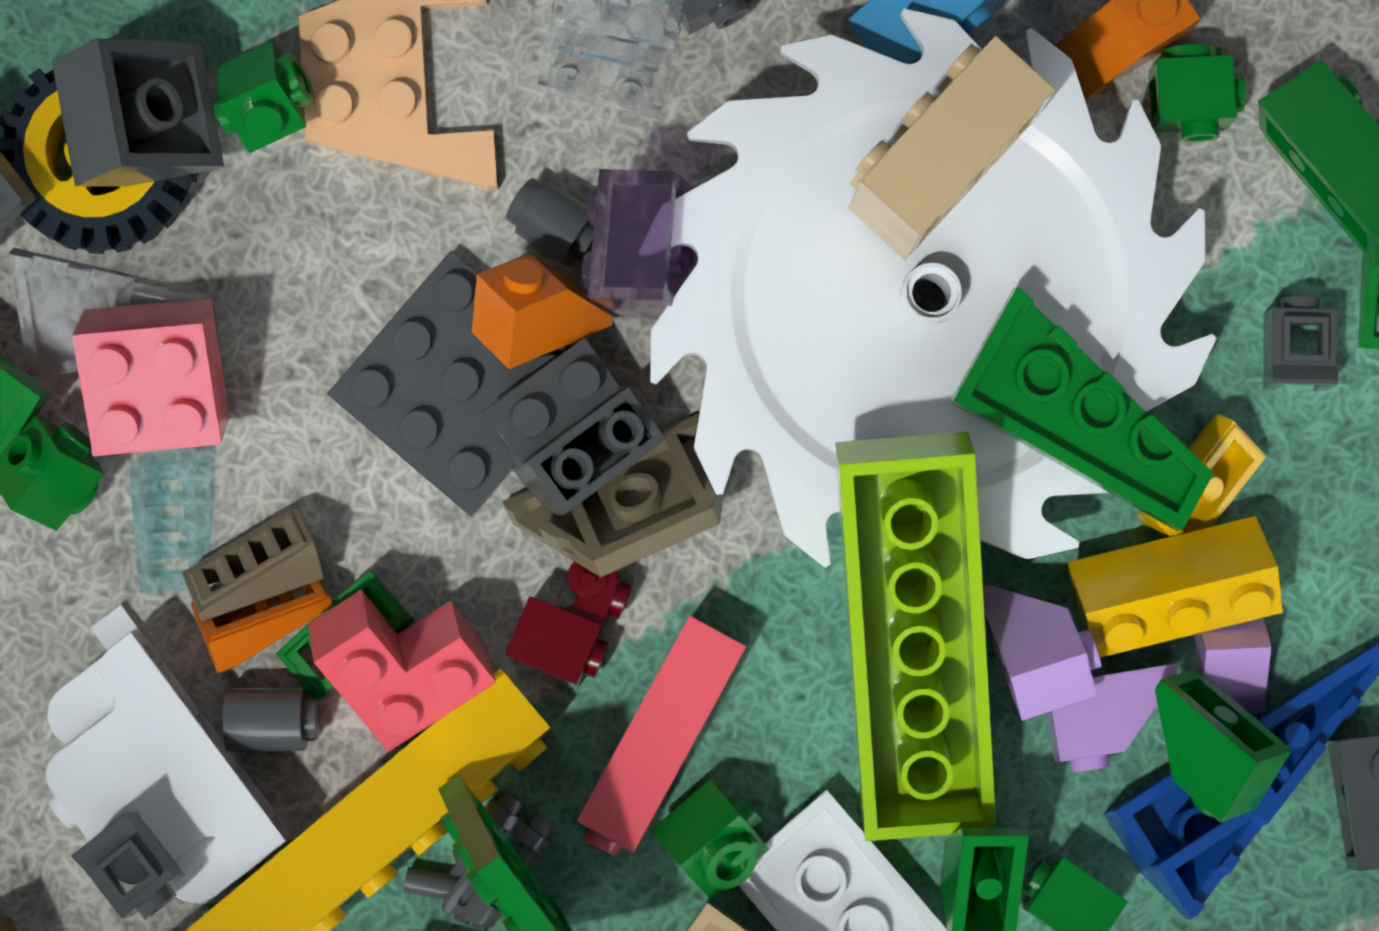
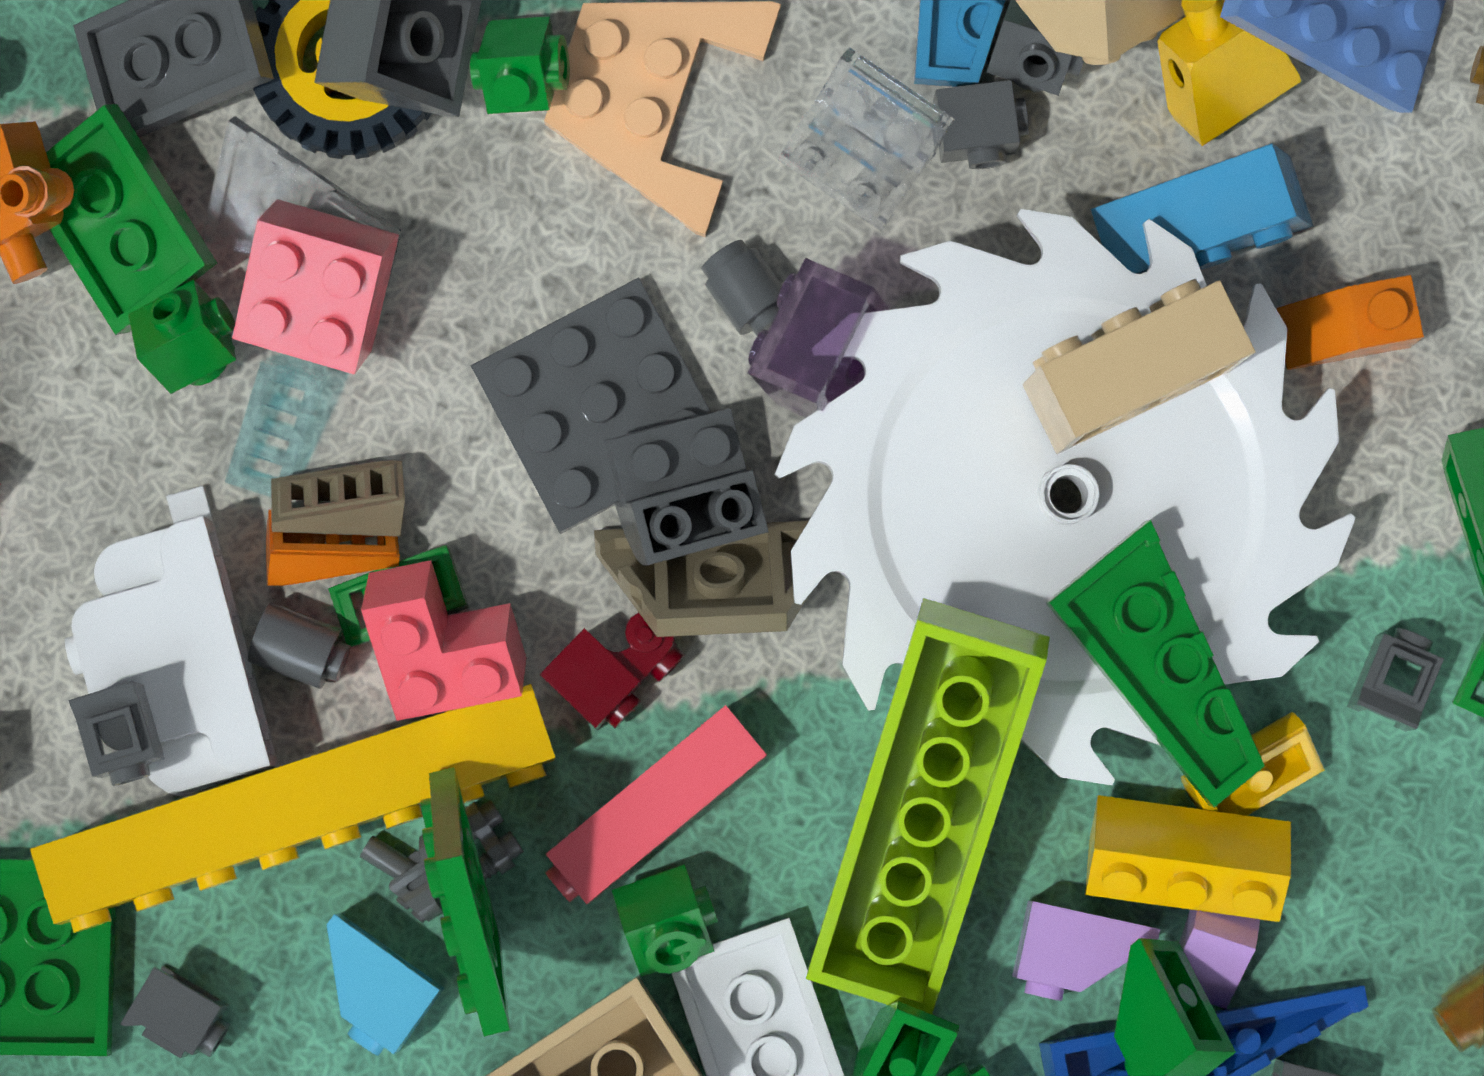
camera: 15 degrees right, 0 degrees up
(532, 310) = (691, 364): orange slope -> none
(1039, 651) = (1037, 867): lavender slope -> none
(1195, 92) = (1393, 403): green brick -> none

